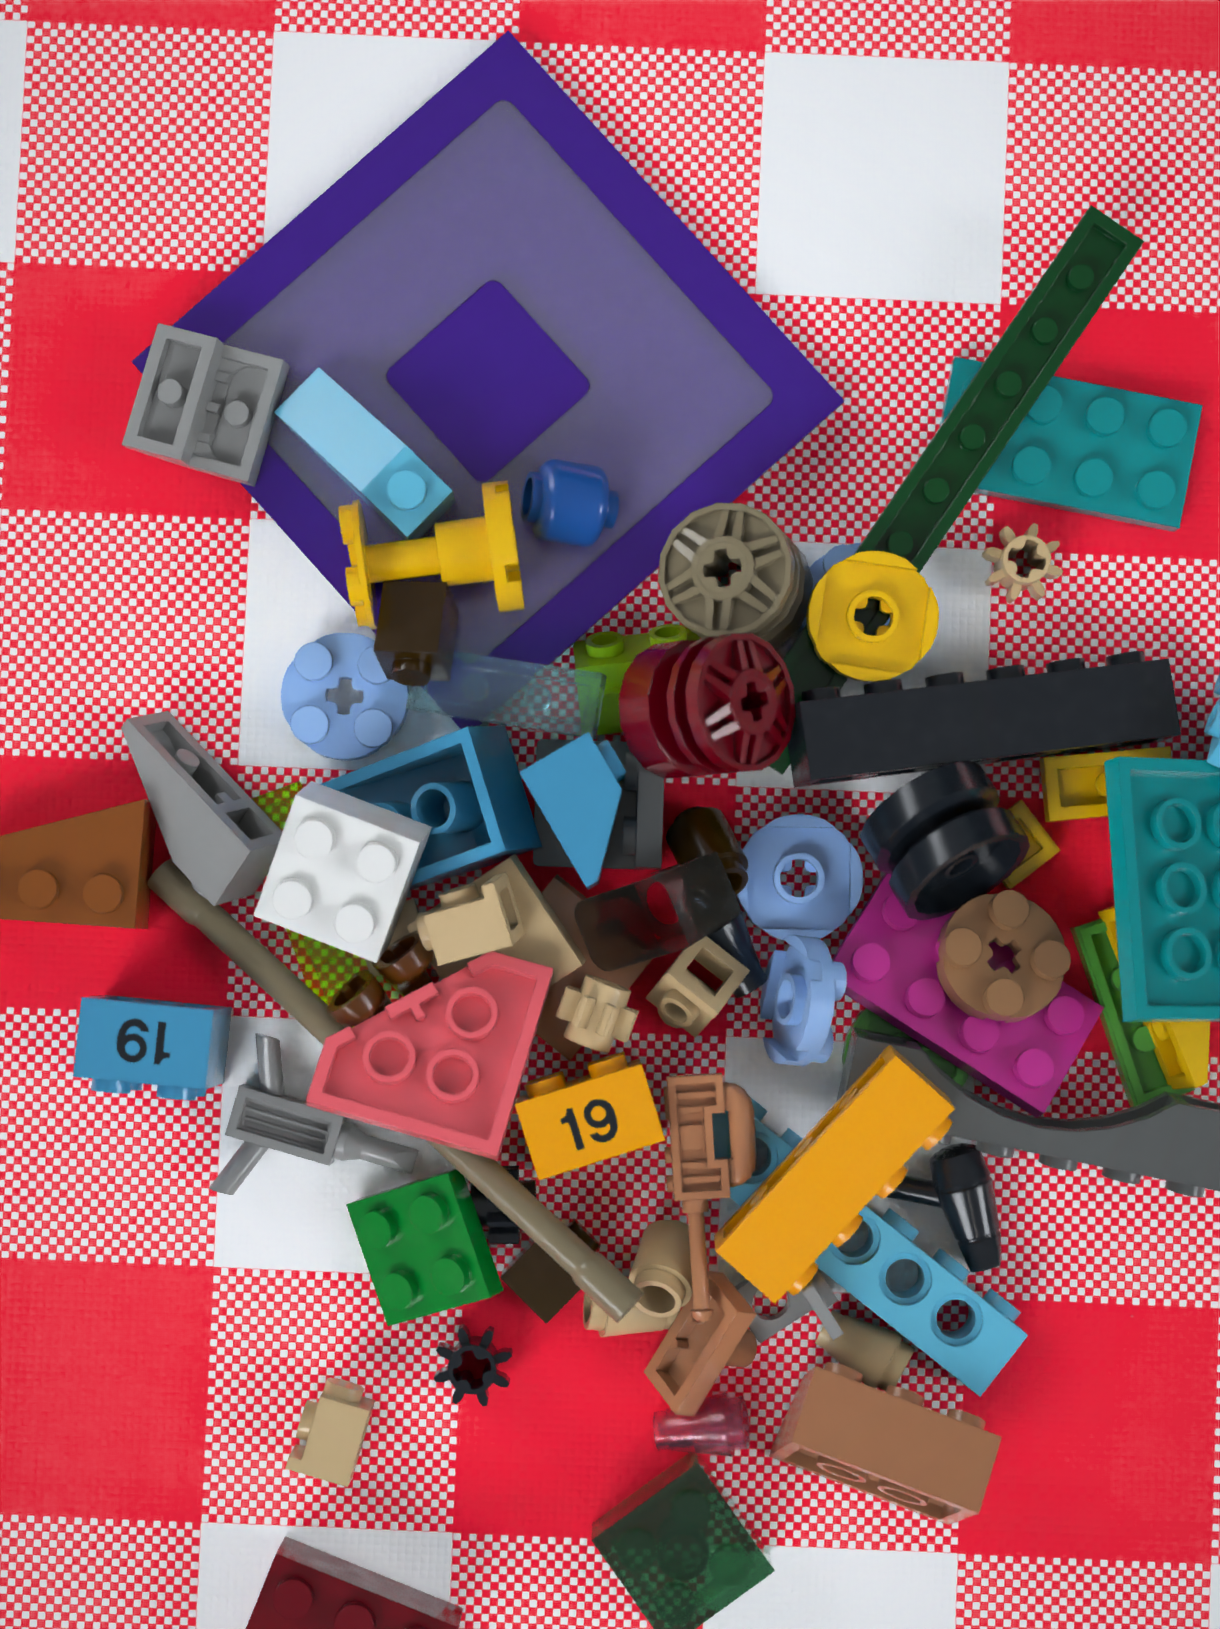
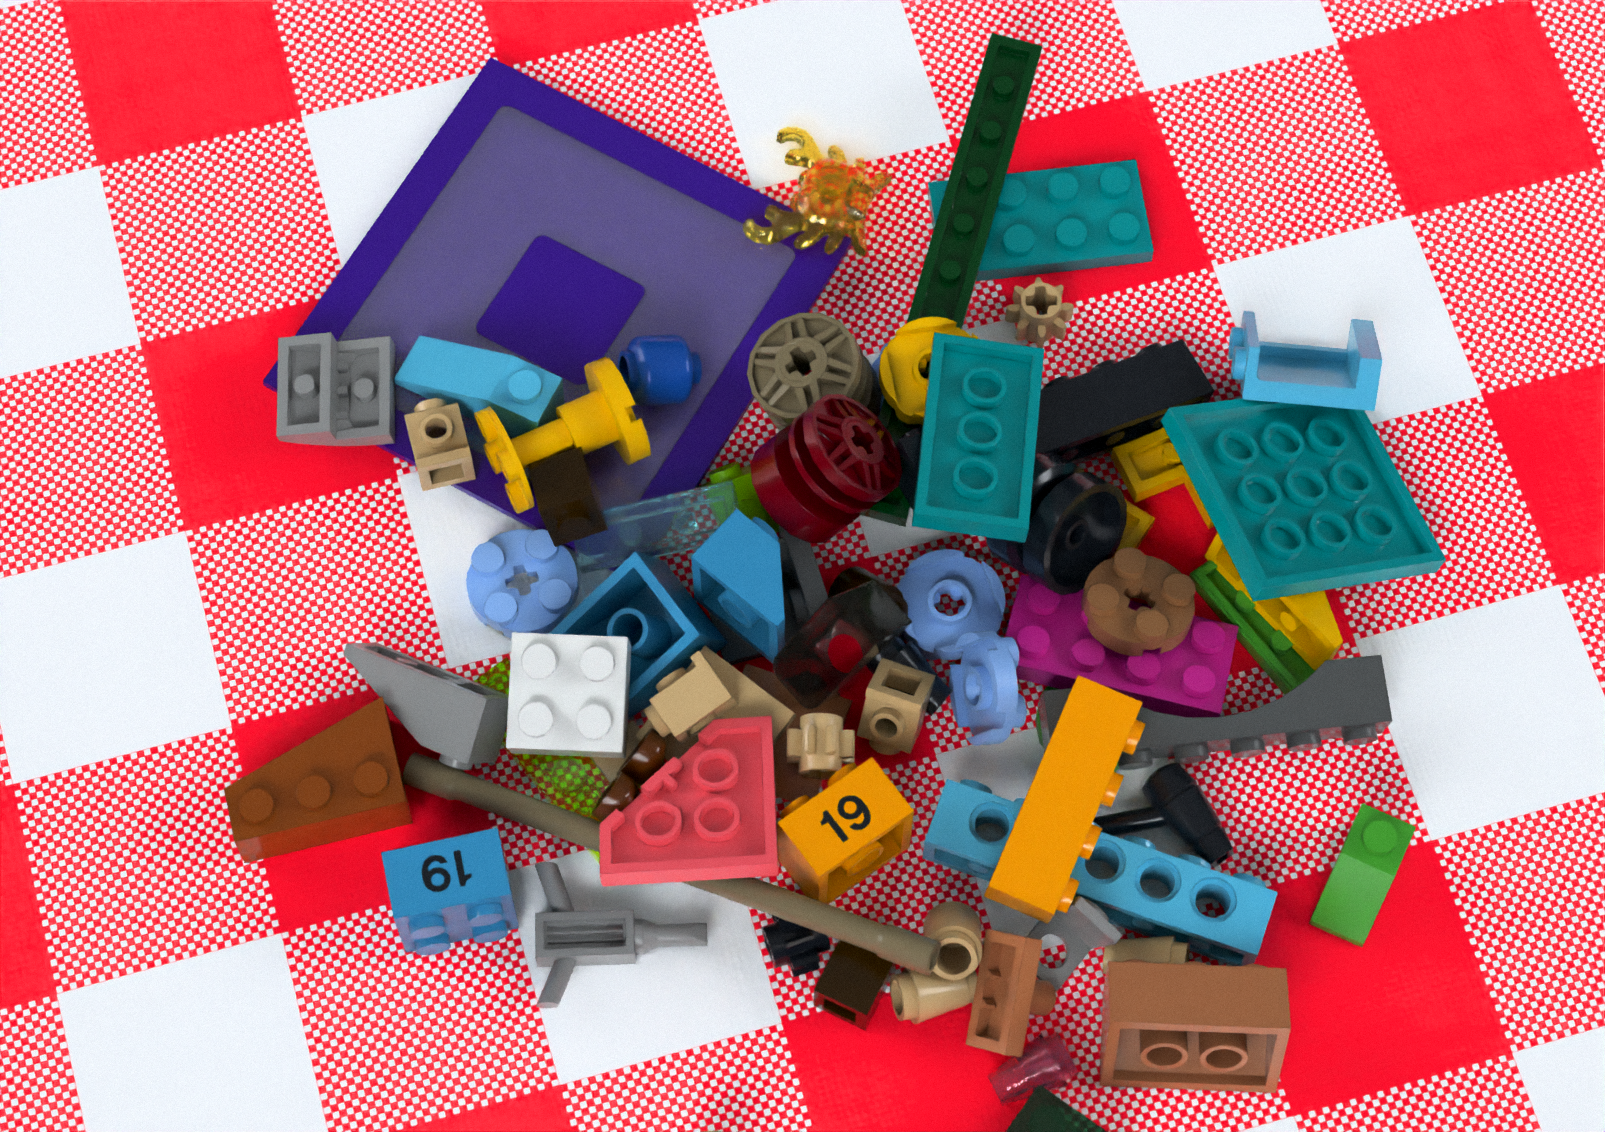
camera: 15 degrees left, 20 degrees down
(301, 534) = (441, 459): none -> tan brick
(424, 1247) = (739, 993): green plate -> none
(464, 1380) = (813, 1098): black gear -> none
(695, 1170) = (947, 838): nougat piece -> none
(835, 343) = (829, 198): none -> clear yellow animal
(888, 734) = (979, 438): none -> teal plate
(1128, 1334) = (1362, 875): none -> bright green slope

